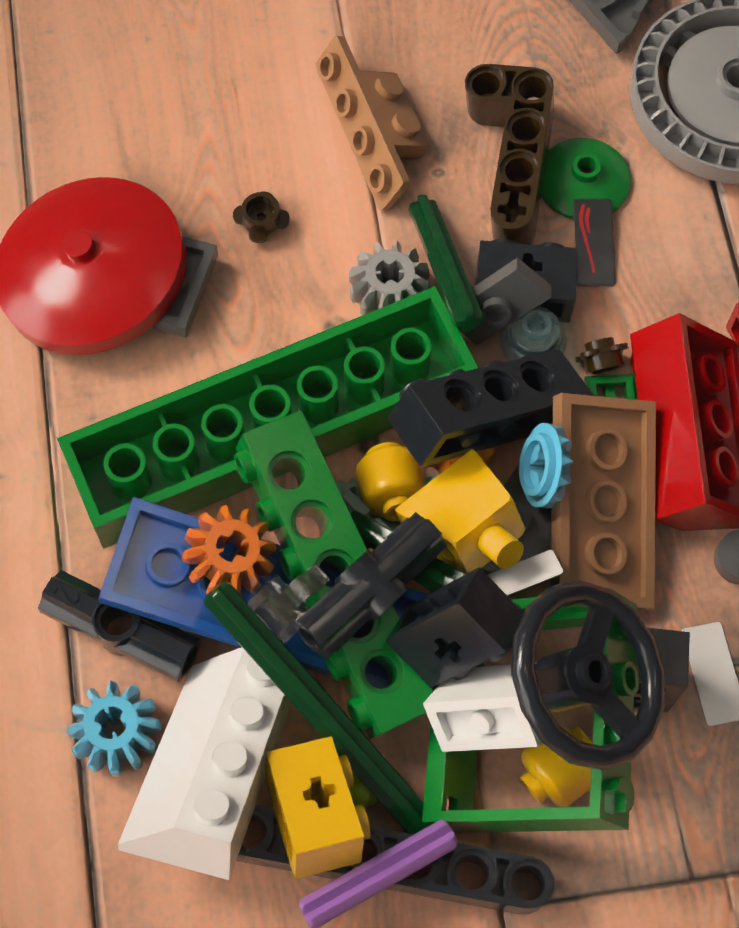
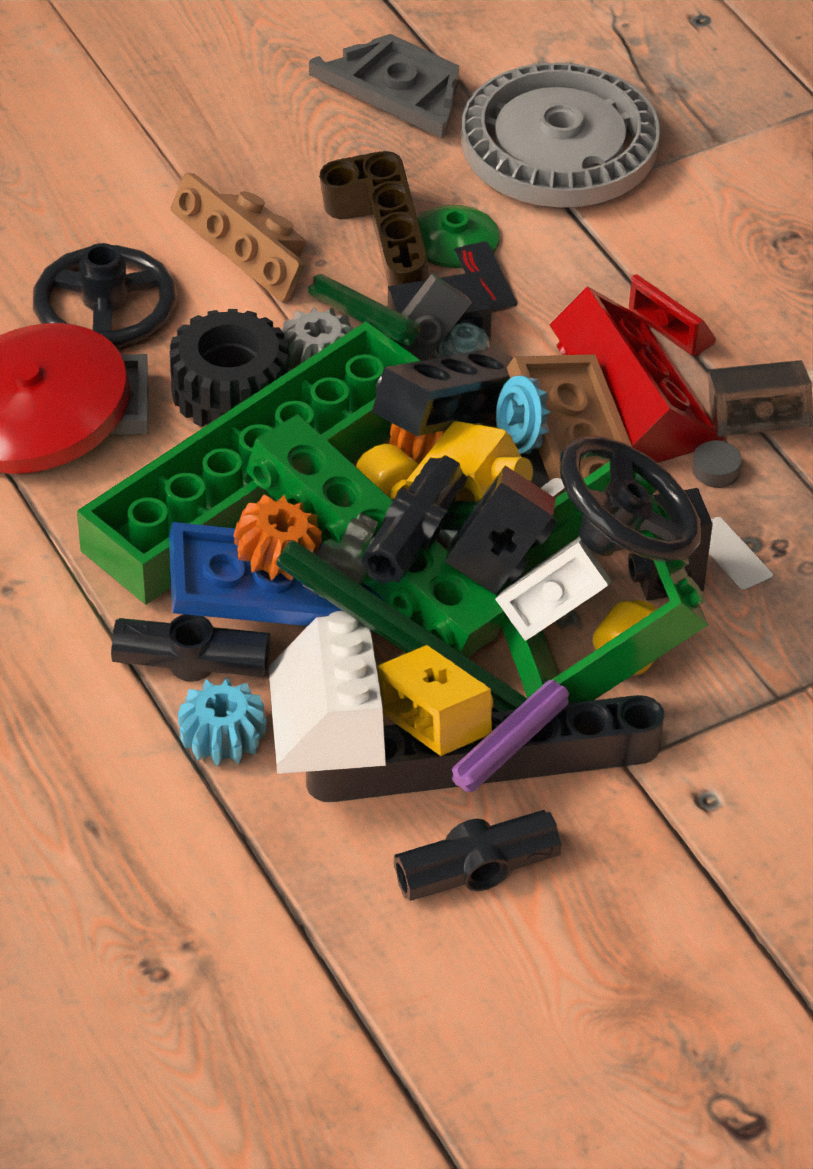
camera: 20 degrees left, 20 degrees down
(209, 151) = (107, 287): none -> black piece
(261, 204) = (168, 322): dark brown plate -> none
(281, 257) = (224, 362): none -> black tyre
(602, 356) = (533, 344): dark brown plate -> none

